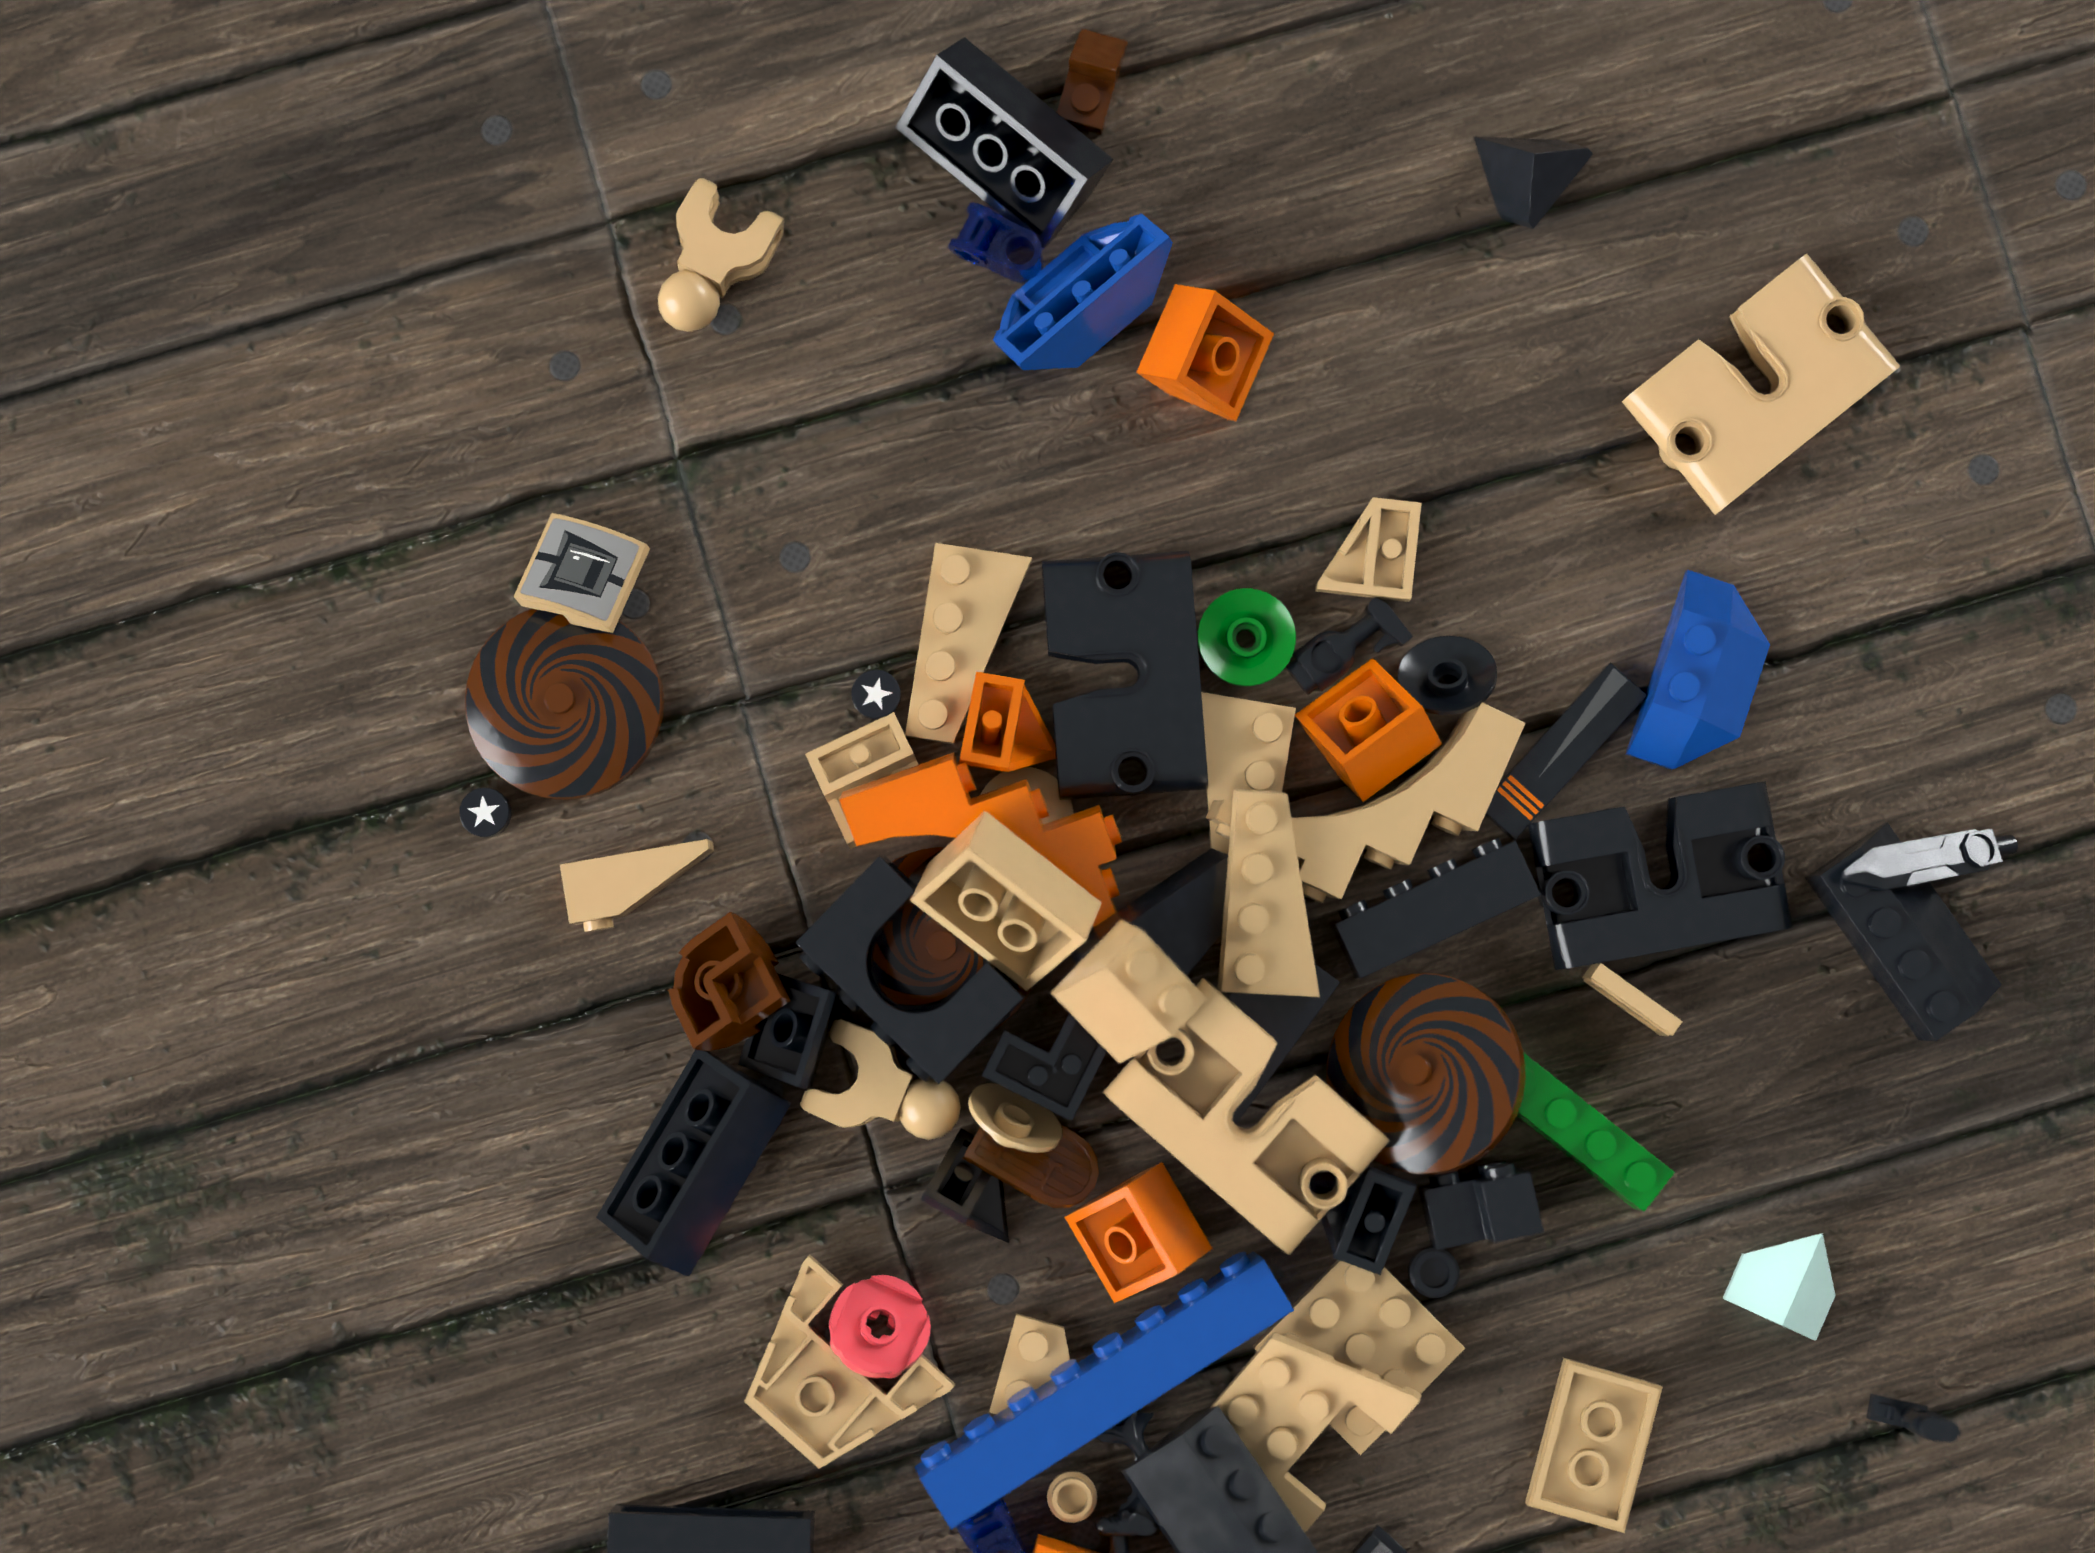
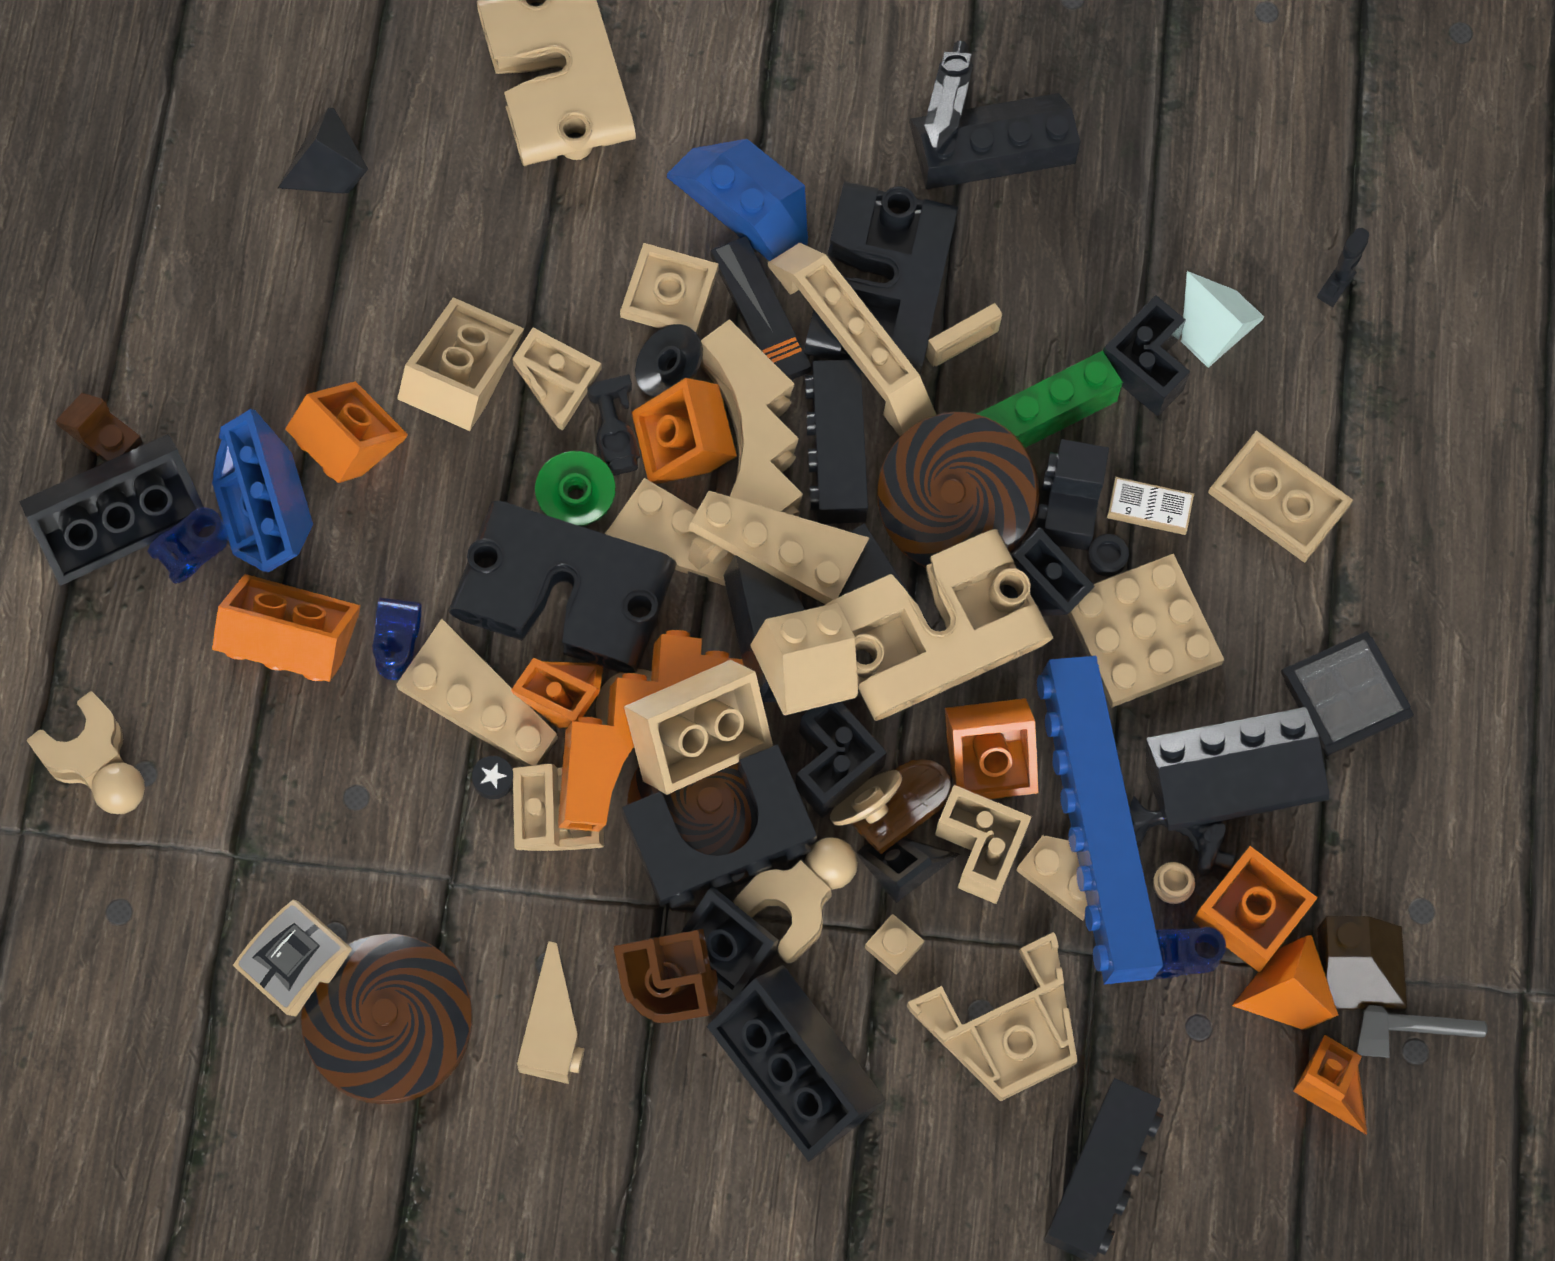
camera: 70 degrees left, 15 degrees down
(485, 812) = (447, 1116): black tile -> none
(853, 1339) = (991, 990): coral plate -> none
(872, 1212) = (894, 944): none -> tan plate
(948, 392) = (285, 627): none -> orange slope
(999, 515) = (395, 631): none -> clear blue piece
(1029, 1281) = (992, 835): none -> tan brick
(1290, 1398) = (1159, 684): tan wing -> none
(1343, 440) = (459, 363): none -> tan slope
(1515, 1298) = (1150, 506): none -> tile
(1539, 636) = (669, 288): none -> tan plate
(1571, 876) = (858, 333): none -> tan slope
(1689, 1215) = (1142, 356): none -> black brick

